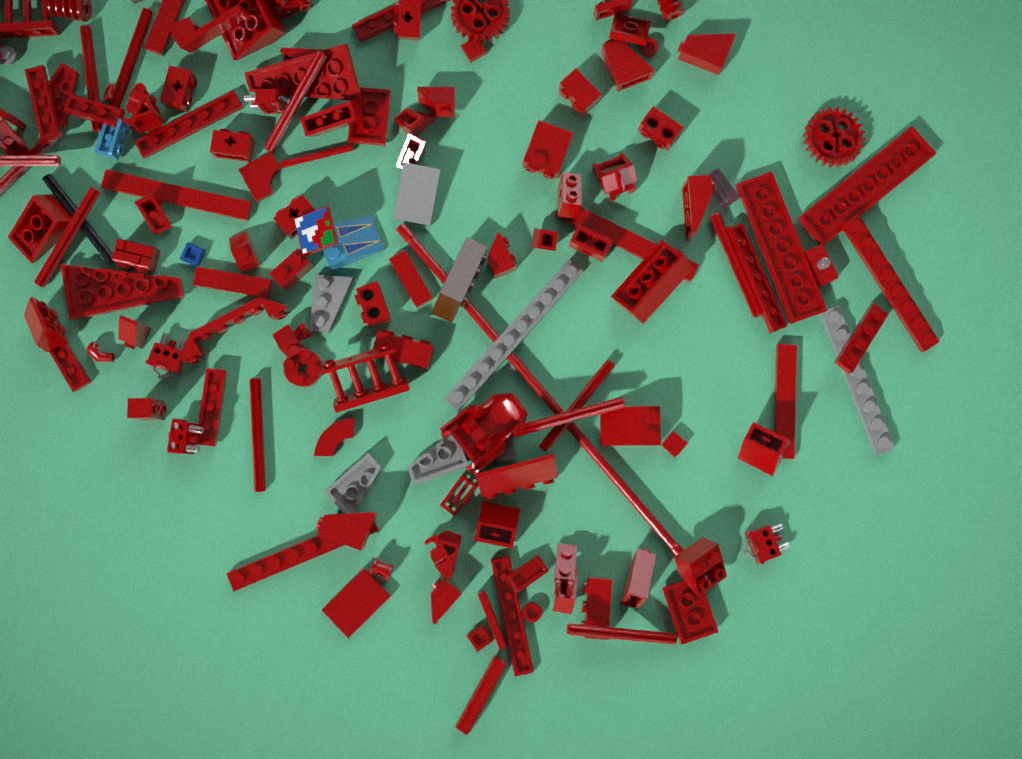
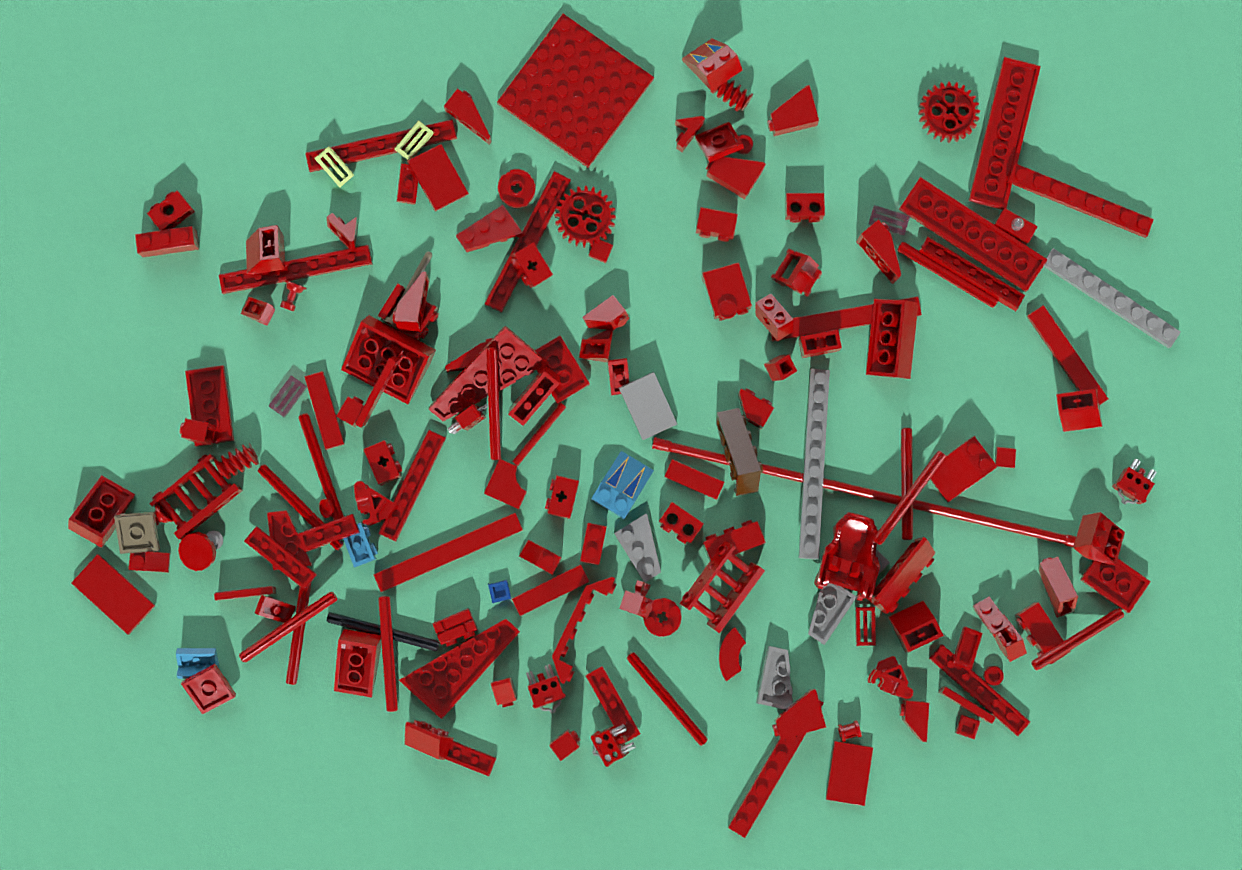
camera: 40 degrees left, 0 degrees up
(99, 356) = (486, 731): red arm -> none
(153, 213) = (445, 581): red slope -> none
(240, 151) = (459, 486): red brick -> none
(316, 230) = (594, 497): tile -> none
(481, 694) = (1003, 770): red brick -> none
(861, 338) = (1090, 262): red plate -> none

